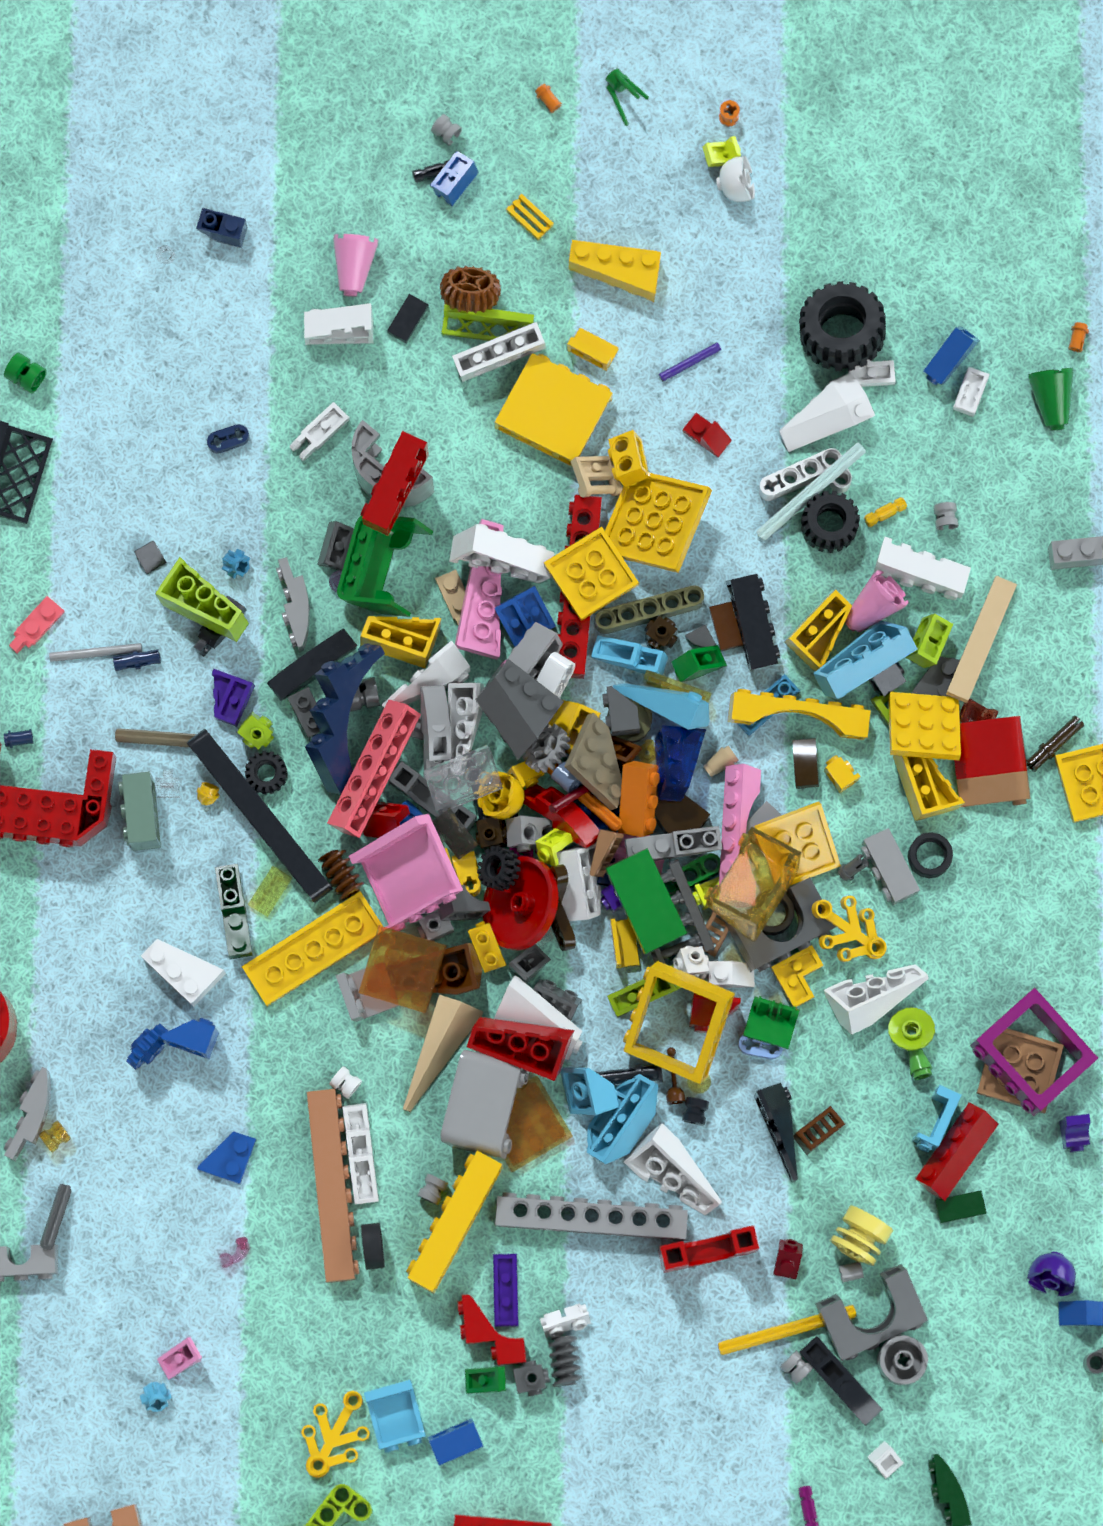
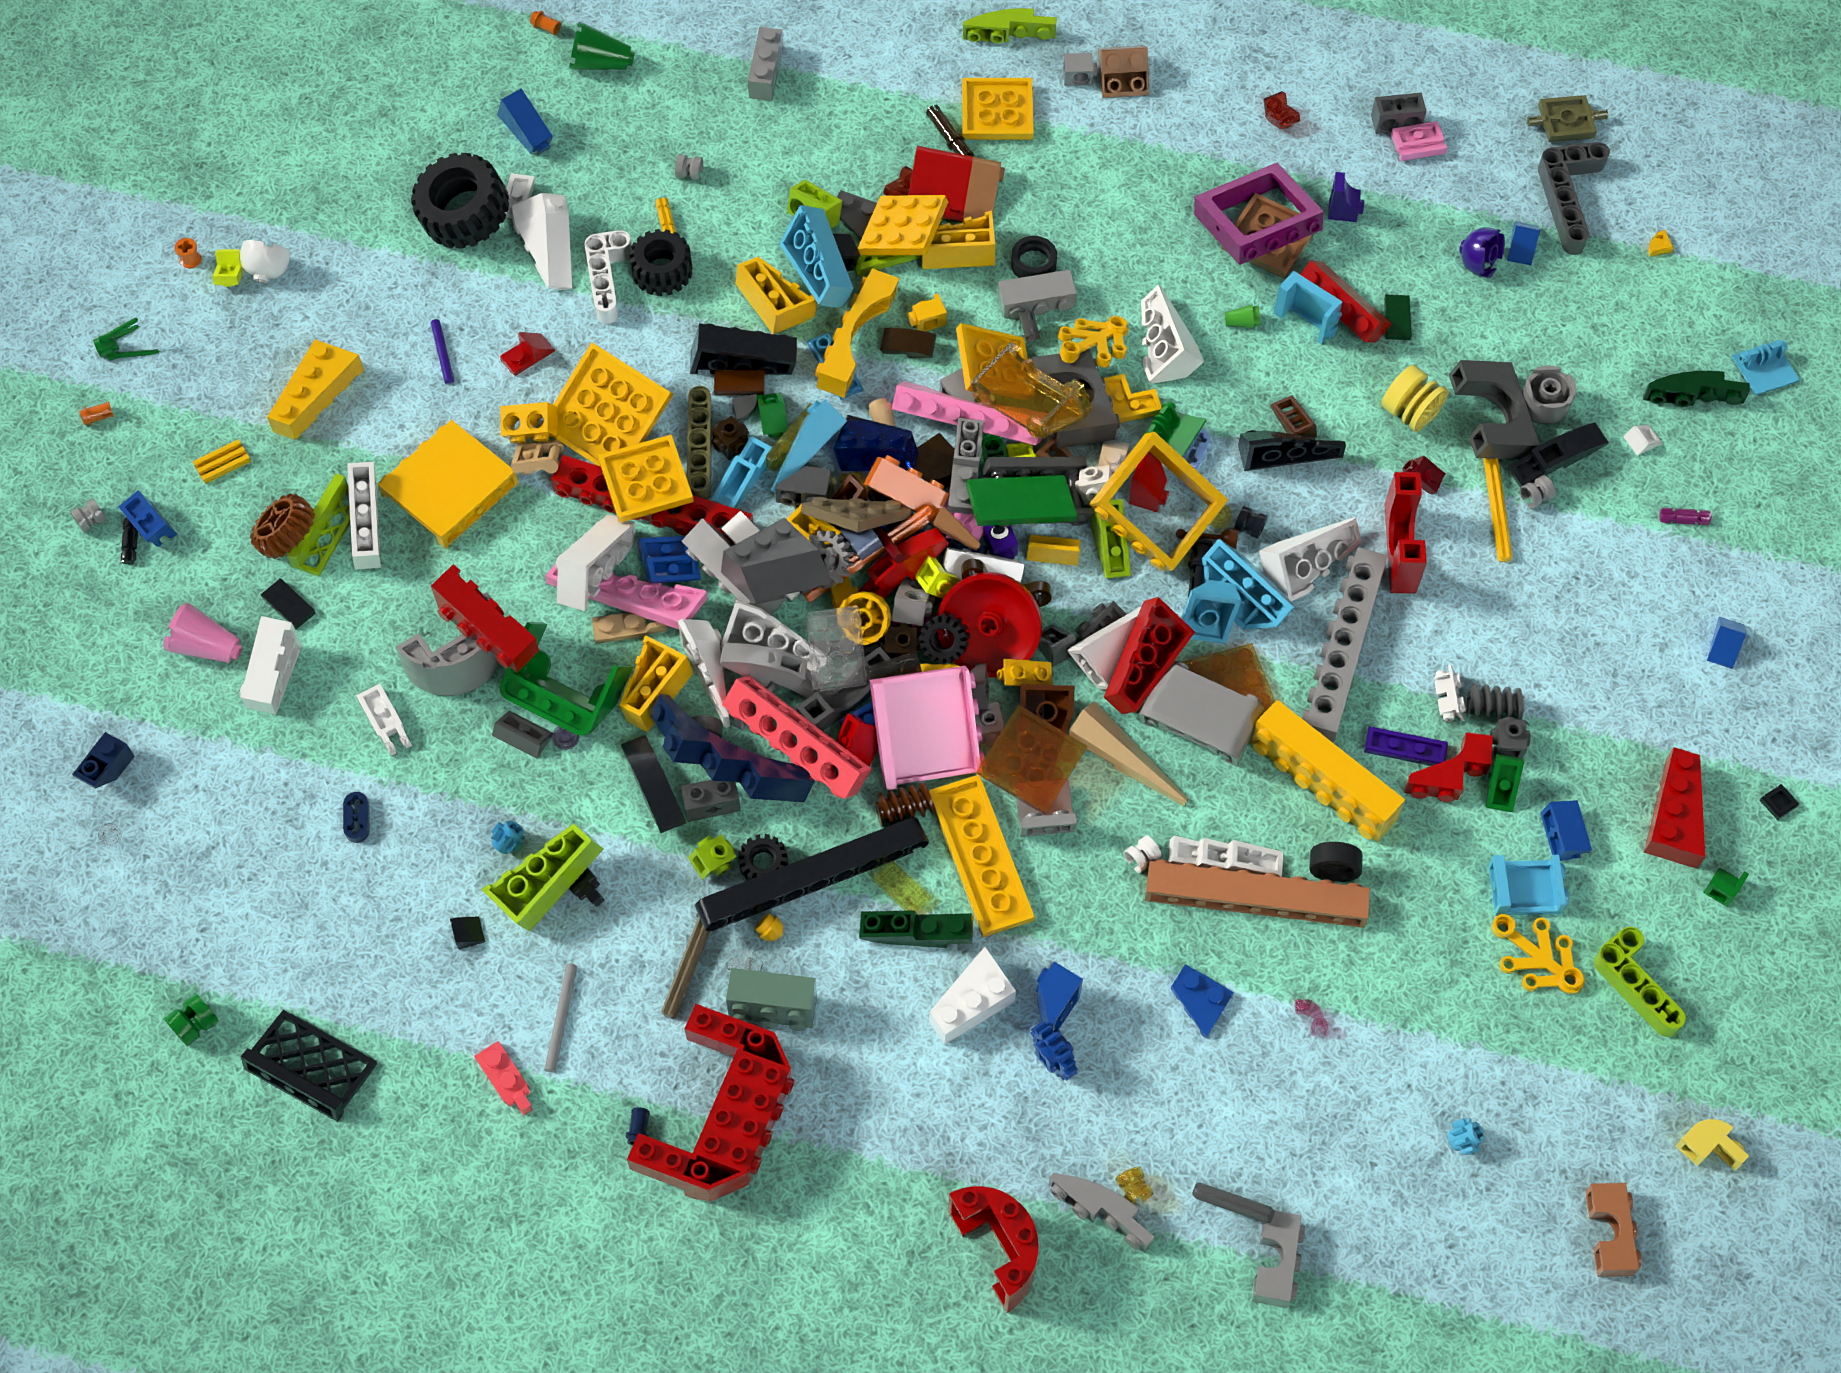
camera: 75 degrees left, 15 degrees down
(136, 660) = (585, 972): dark blue pin -> none
(179, 1358) = (1425, 1096): bright pink slope -> none
(230, 696) = (662, 880): dark purple wing -> none
(297, 612) = (587, 784): light grey slope -> none
(432, 1189) = (1282, 792): light grey wheel -> none
(592, 348) = (394, 435): yellow panel -> none
(810, 491) = (624, 268): light aqua axle -> none
(851, 1272) = (1447, 422): light grey hinge -> none
(875, 602) = (761, 236): bright pink cone -> none
(915, 1020) = (1205, 306): lime dish -> none
(922, 570) = (736, 199): white wedge -> none
(971, 391) = (567, 119): white plate -> none
(981, 639) = (826, 165): tan tile -> none

